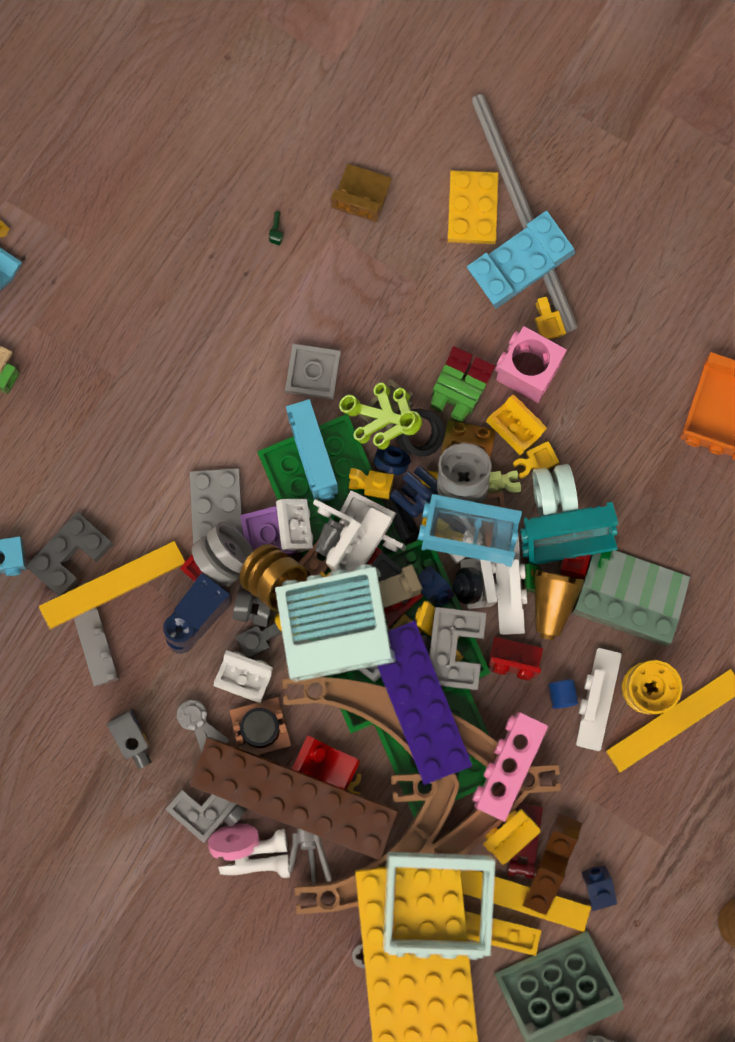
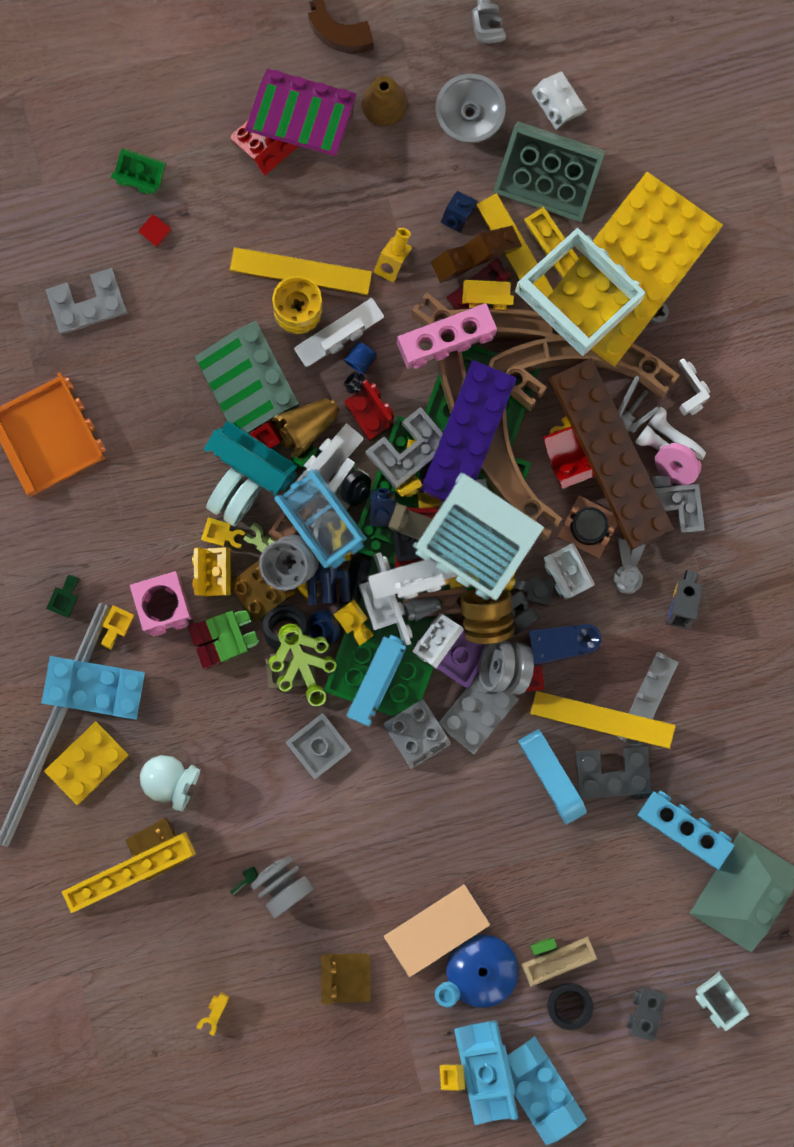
camera: 135 degrees left, 5 degrees up
(45, 336) = (488, 953): none -> blue dish
(49, 281) = (447, 994): none -> medium azure tile
(99, 319) = (436, 930): none -> light nougat tile
(114, 507) = (553, 776): none -> medium azure beam
(137, 225) = (345, 978): none -> pearl gold bracket
(211, 124) = (217, 1006): none -> yellow plate
(242, 244) = (282, 886): none -> light grey wheel
(247, 445) = (417, 734): none -> light grey bracket
(264, 906) = (694, 404): none -> white bracket
(364, 153) = (128, 872): none -> yellow plate
(401, 243) = (167, 780): none -> light aqua tile
(549, 670) = (354, 382): none -> black plate
(606, 304) = (63, 600): none -> dark green plate
(616, 802) = (394, 254): none -> yellow bracket
(689, 986) = (475, 94): none -> light grey dish

